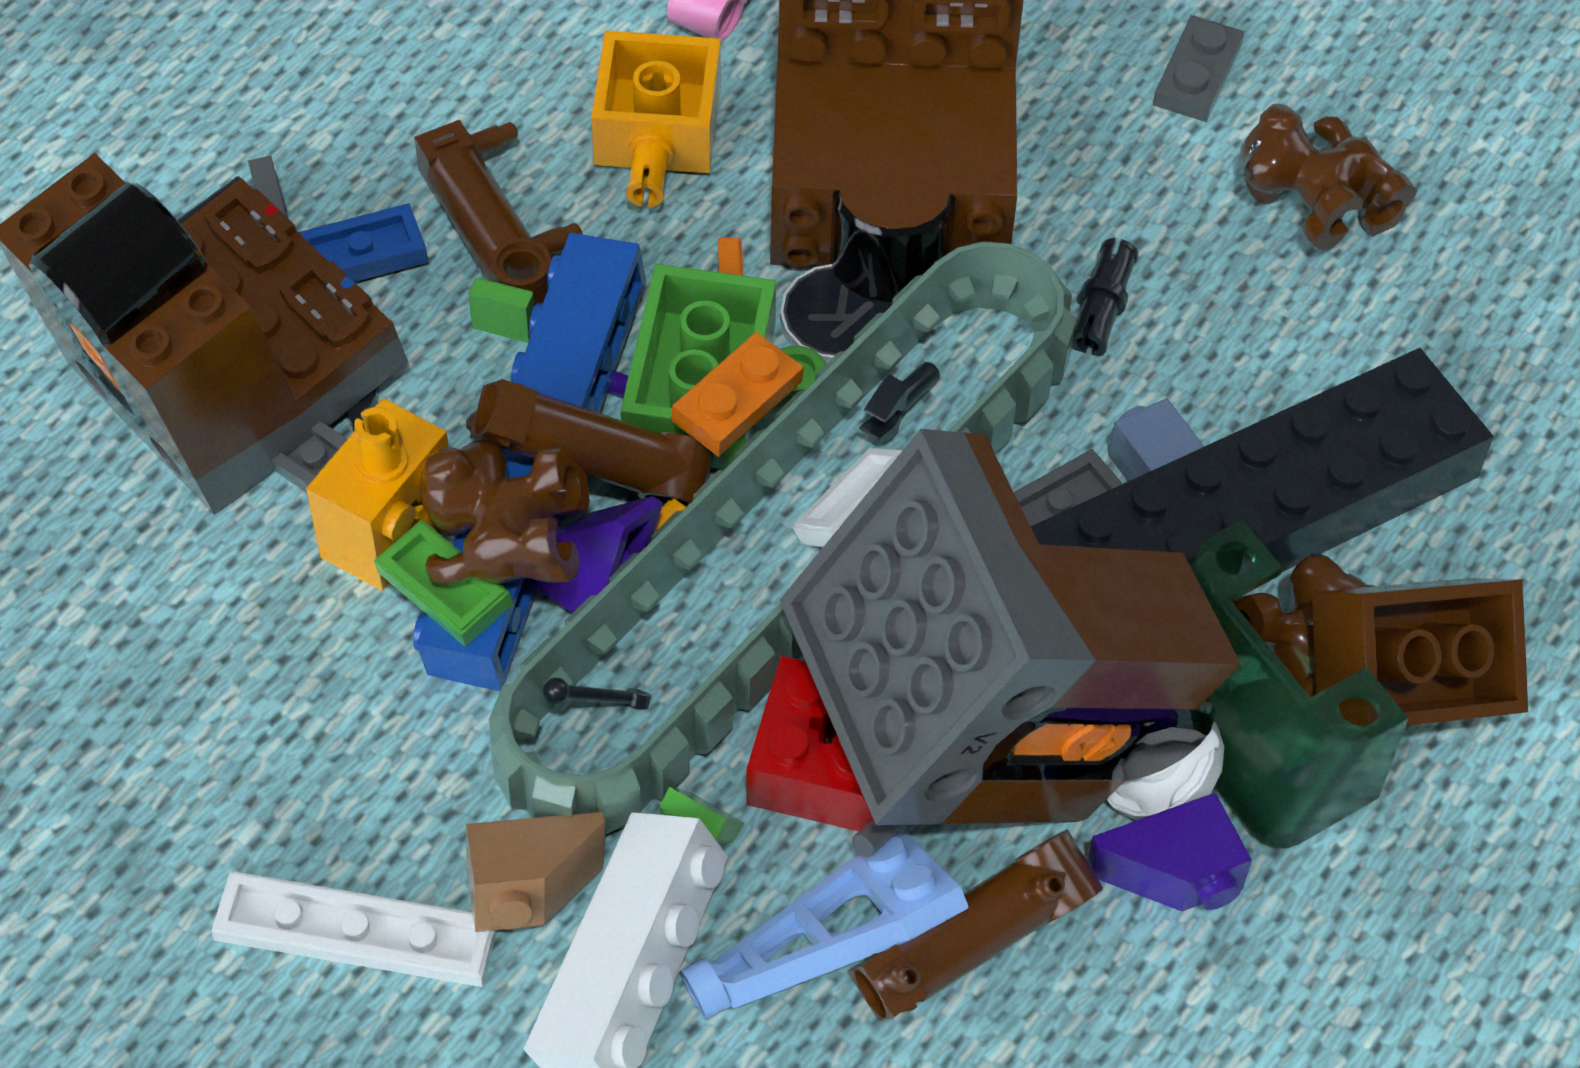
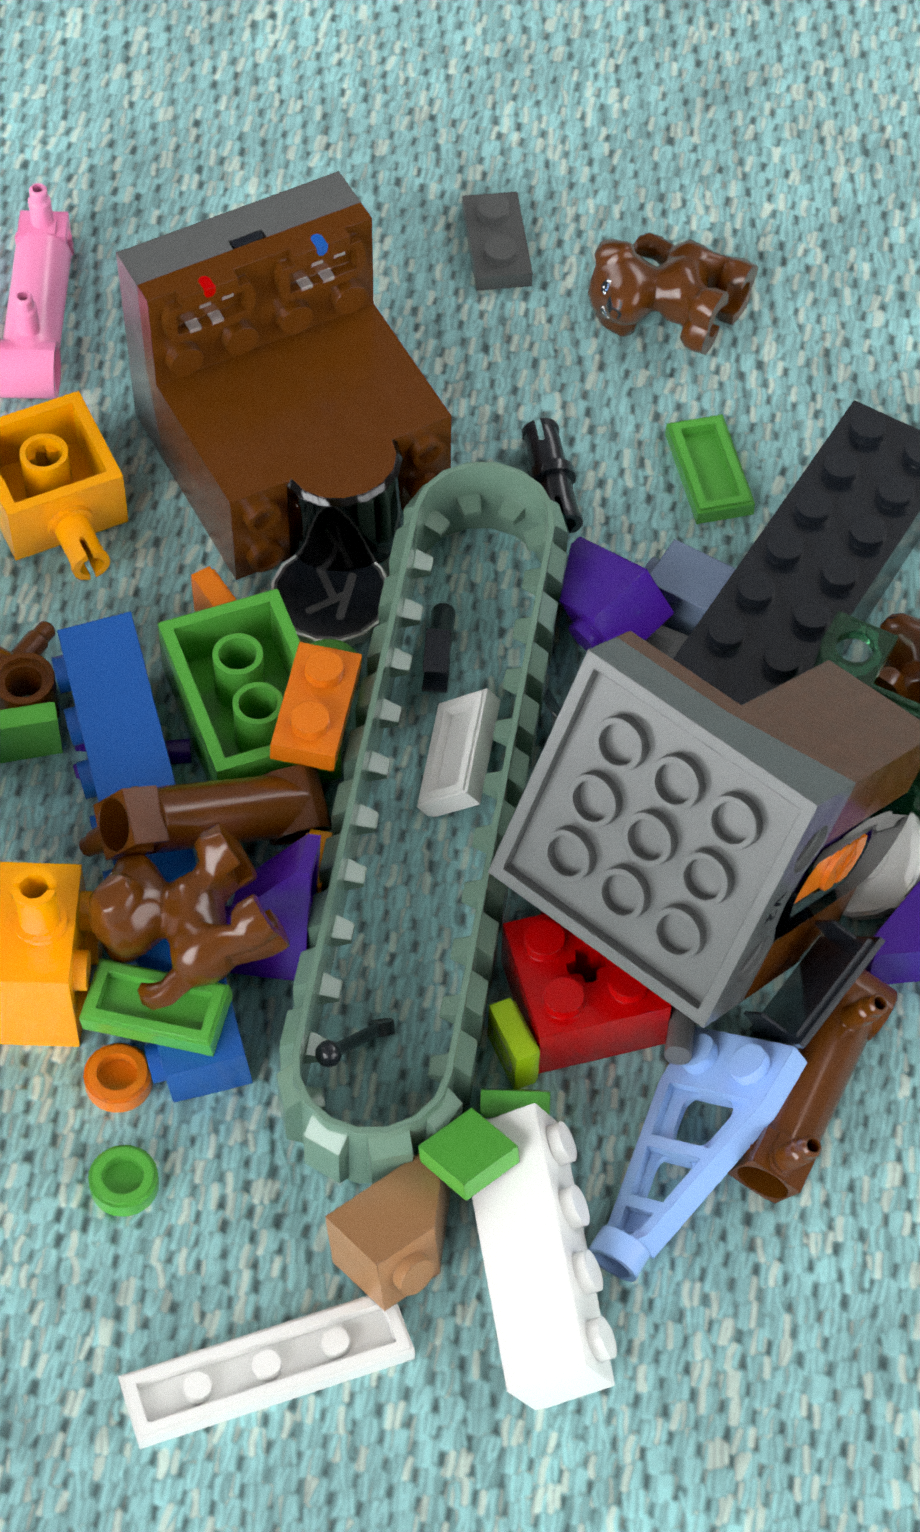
camera: 30 degrees left, 0 degrees up
(342, 716) = (123, 1180): none -> bright green tile
(389, 630) = (117, 1077): none -> orange tile
(615, 832) = (468, 1154): none -> bright green tile
(732, 765) = (513, 1043): none -> lime tile
(1019, 846) = (814, 986): none -> black piece
(1068, 426) = (609, 596): none -> dark purple slope
(1258, 354) = (709, 469): none -> bright green tile

